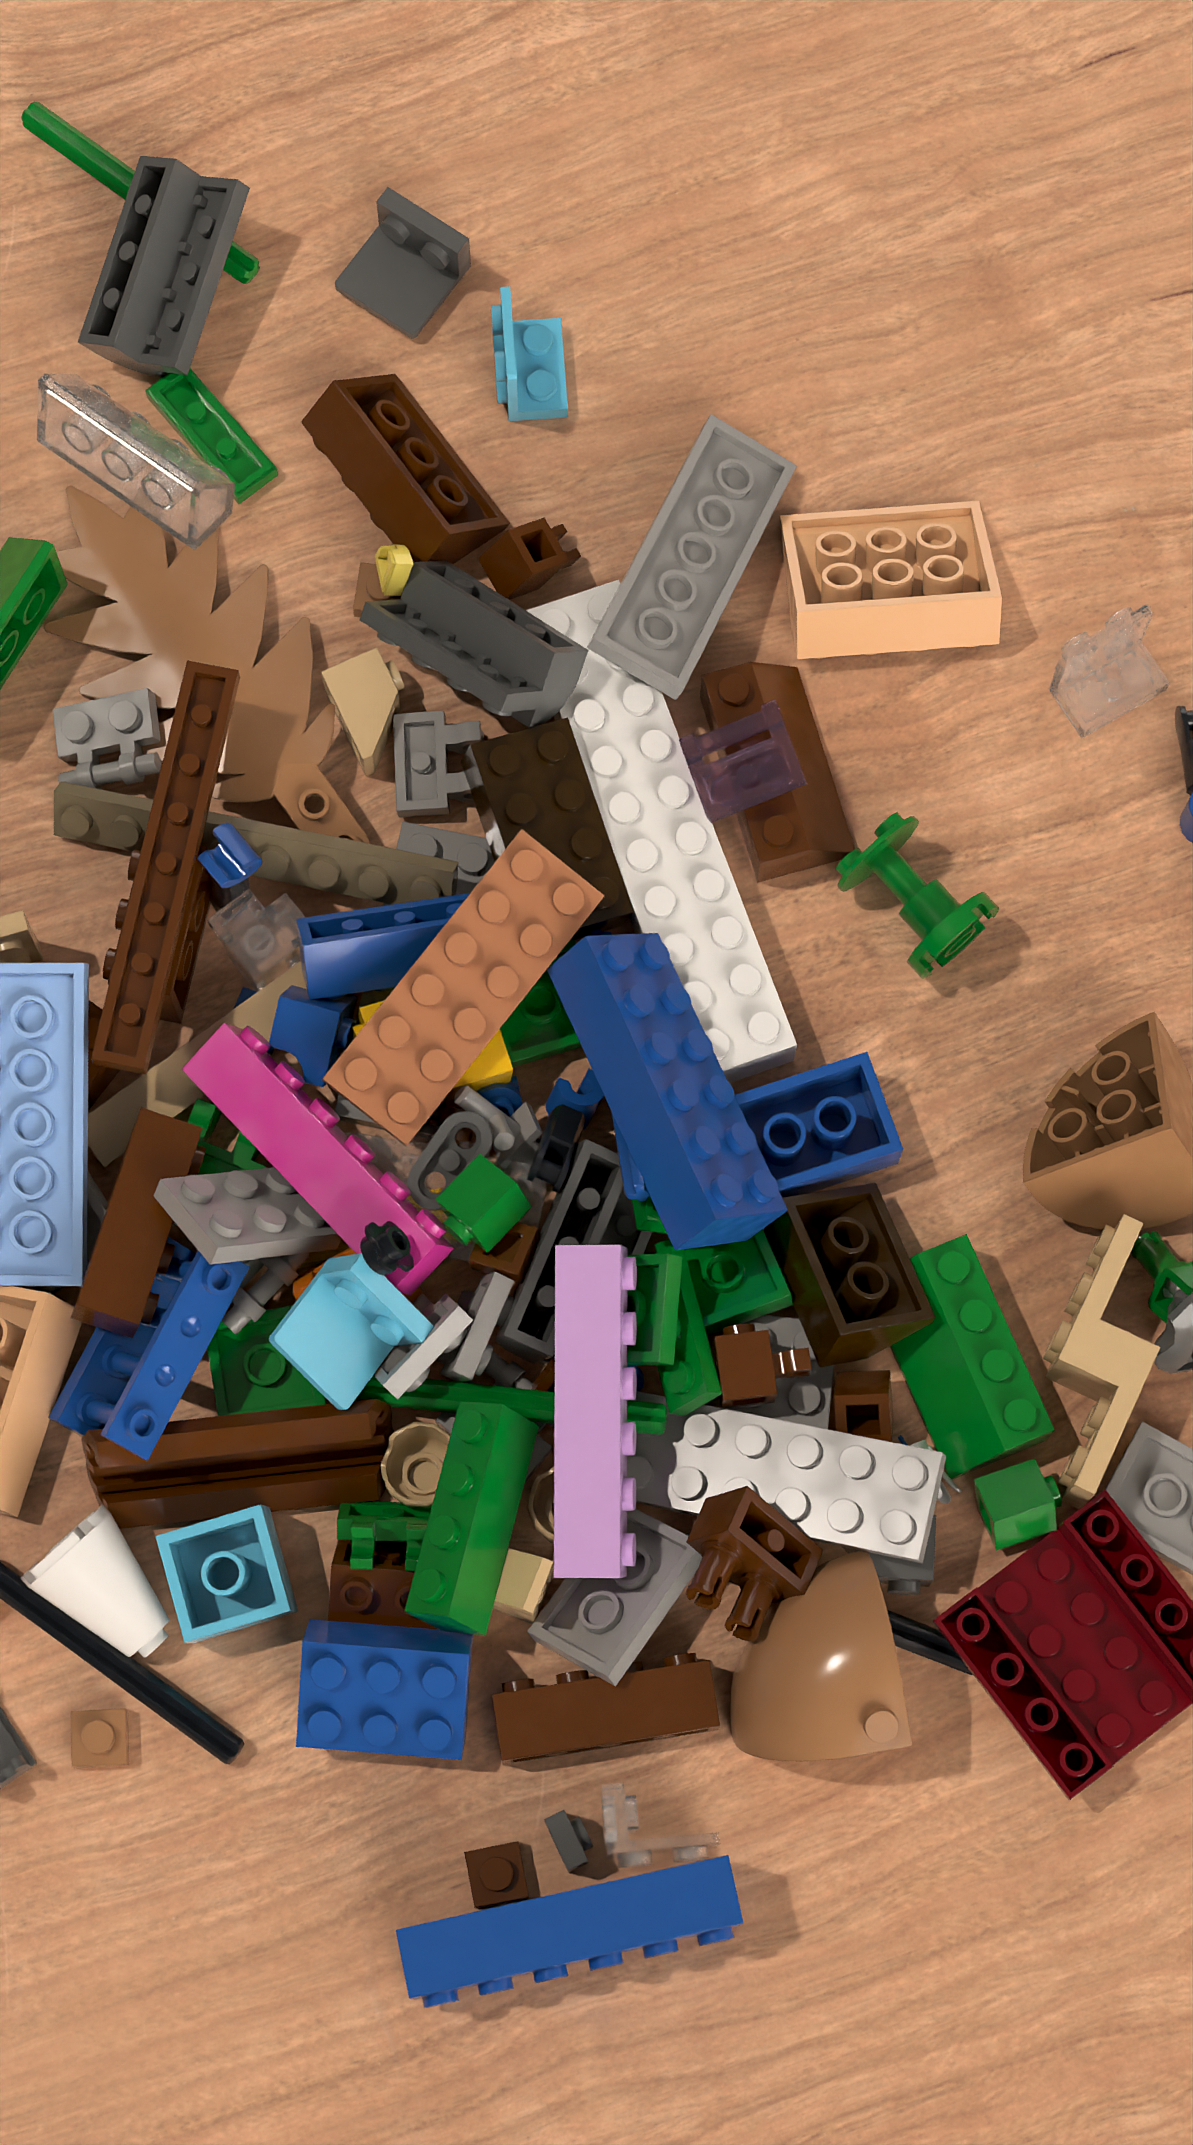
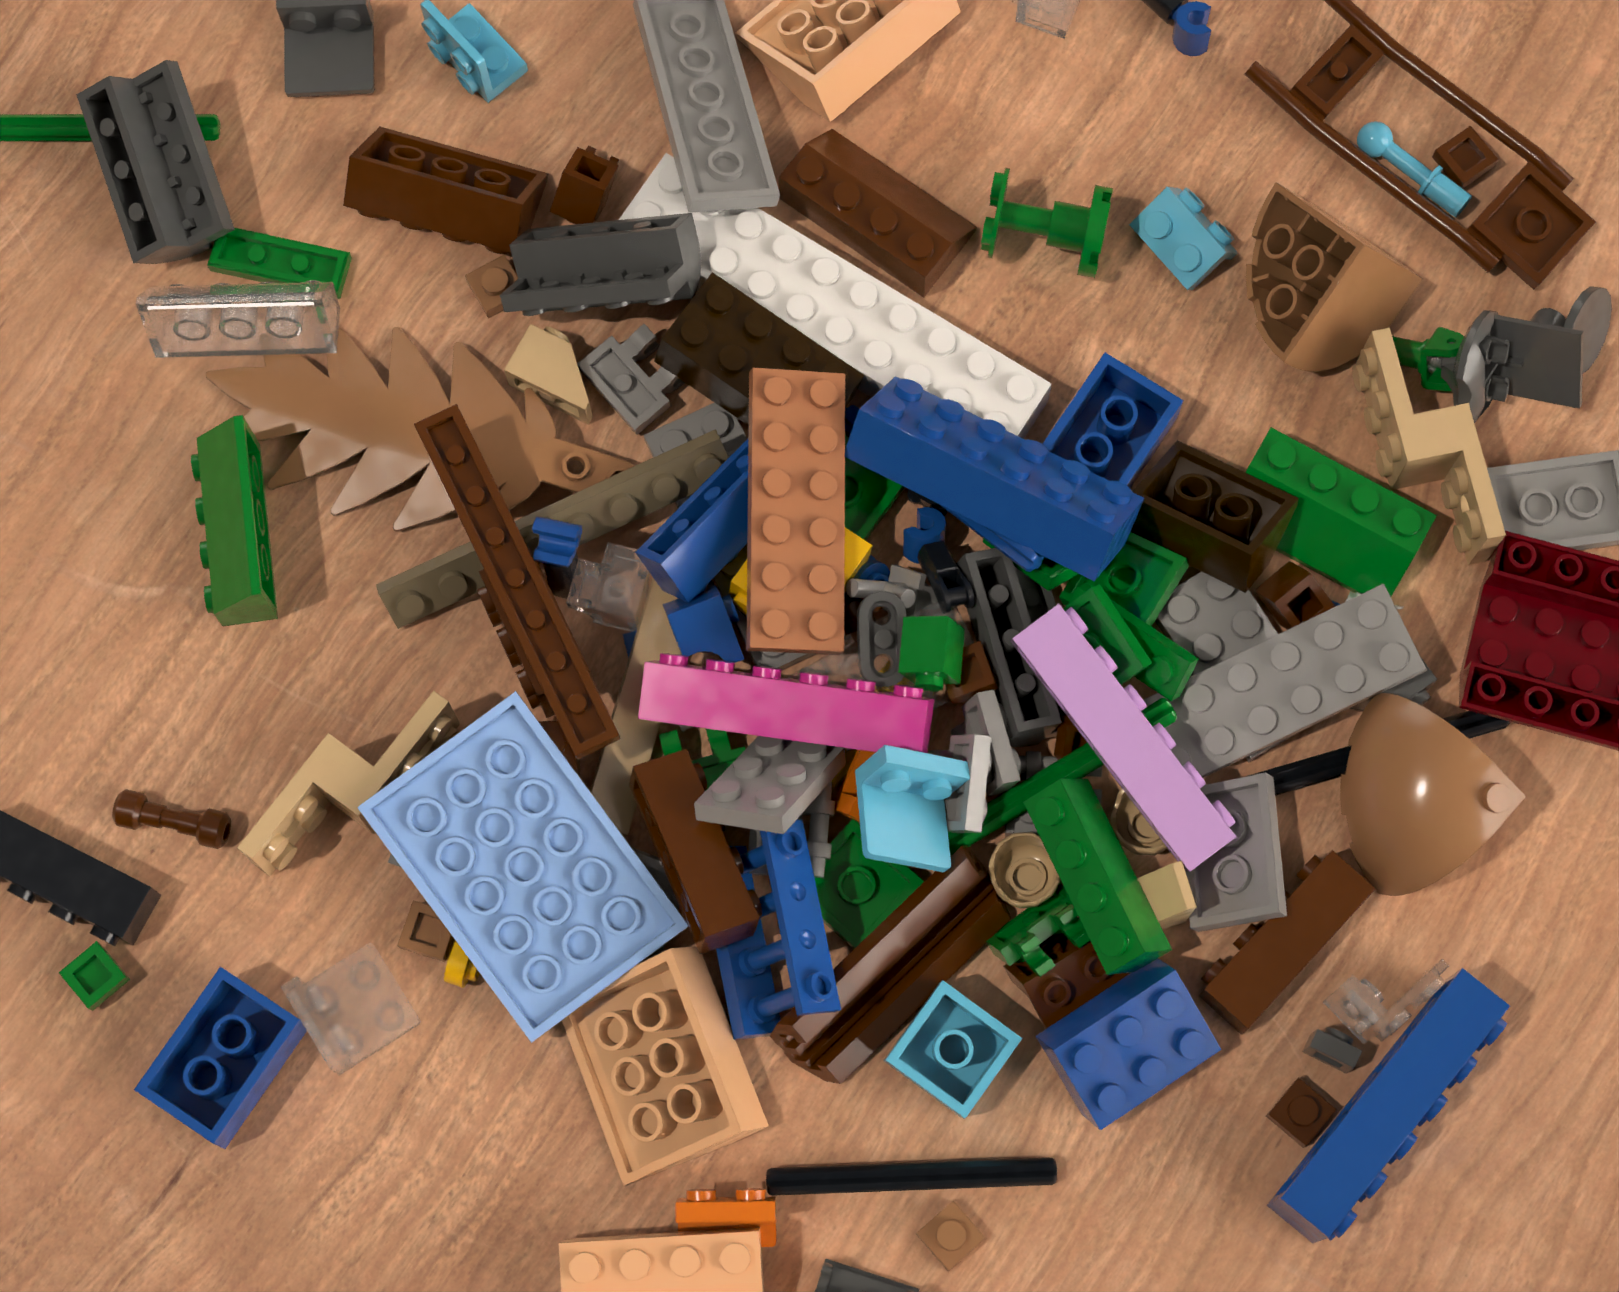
camera: 35 degrees left, 0 degrees up
(101, 1586) = (868, 1126): white cone -> none
(104, 727) = (374, 525): light grey plate -> none
(386, 1248) = (898, 729): black plate -> none
(393, 568) = (497, 259): light yellow tile -> none
(746, 775) = (870, 222): plate -> none
(749, 1367) = (1201, 626): reddish brown brick -> none
(754, 1548) = (1305, 750): reddish brown brick -> none
(1017, 1503) = (1447, 587): green brick -> none
(1040, 1000) = (1183, 236): none -> medium azure bracket

